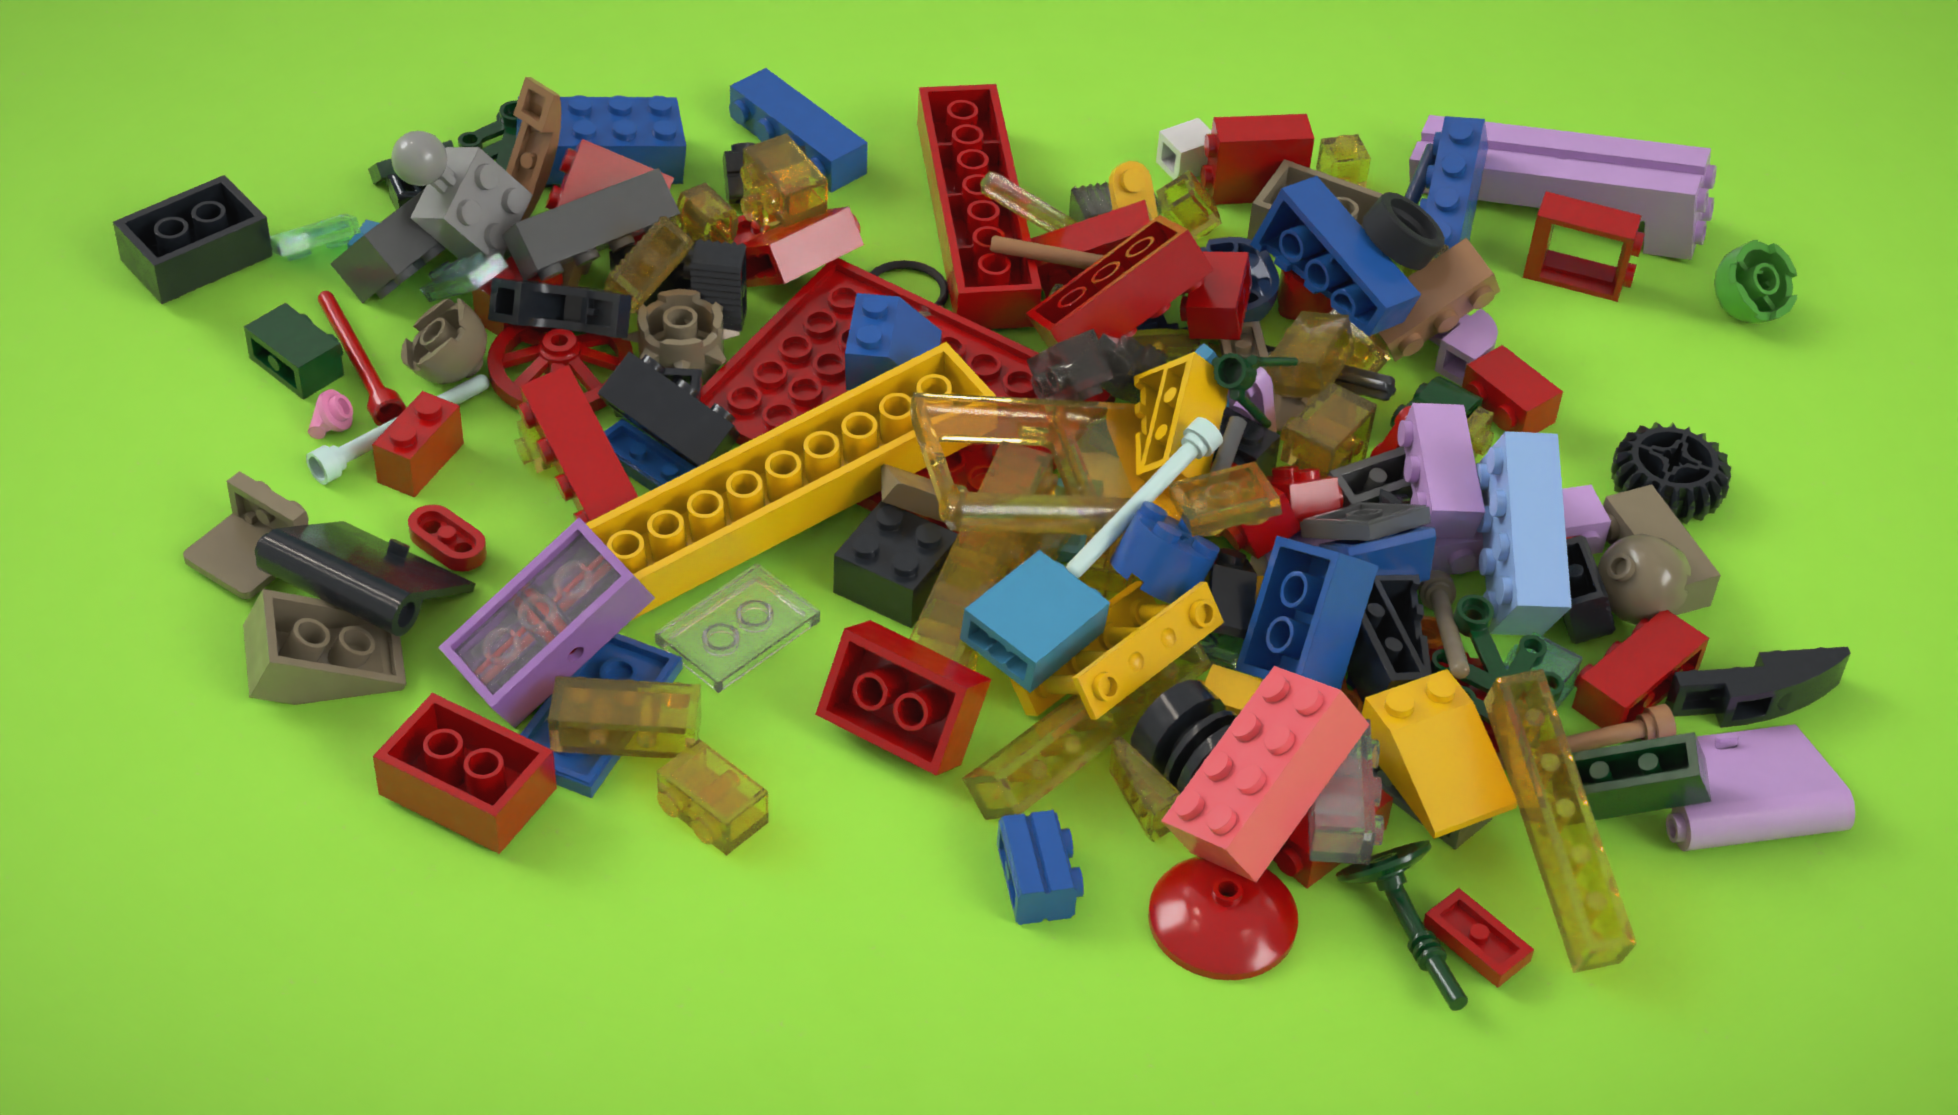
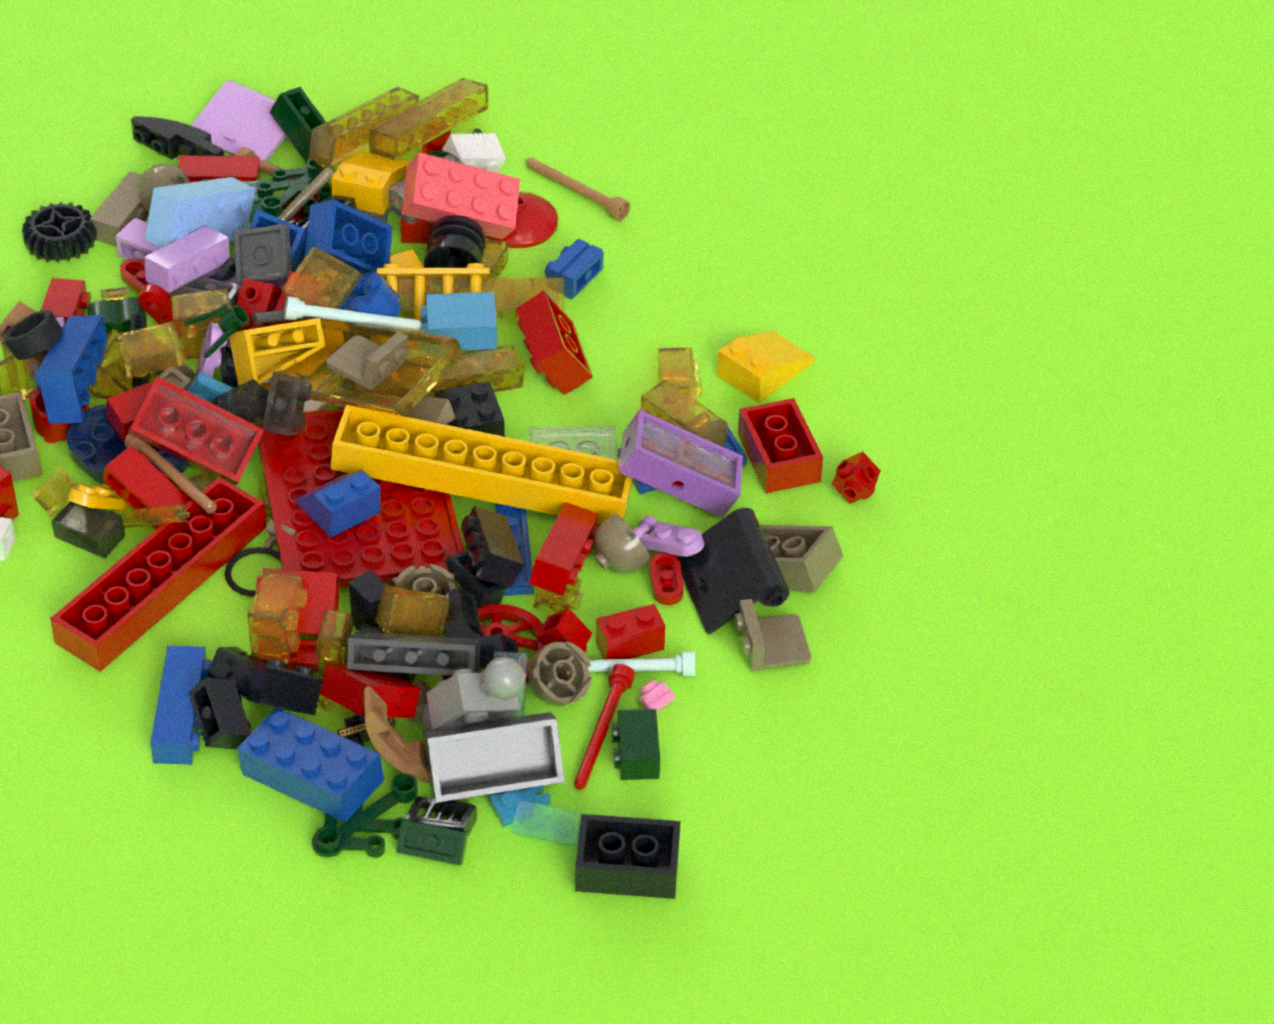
camera: 135 degrees left, 0 degrees up
(320, 800) = (856, 477): none -> red brick
(472, 566) = (668, 537): none -> lavender plate
(486, 390) = (564, 627): none -> red brick
(526, 519) = (619, 547): none -> dark tan cylinder
(623, 909) = (761, 363): none -> yellow slope
(697, 151) = (285, 688): none -> black brick
(733, 119) = (220, 713): none -> black brick
(1044, 454) = (367, 361): none -> dark tan bracket
(1117, 1025) = (617, 207): none -> medium nougat piece
(1391, 932) = (477, 150): none -> white brick
(1523, 930) = (428, 119): none -> clear yellow brick

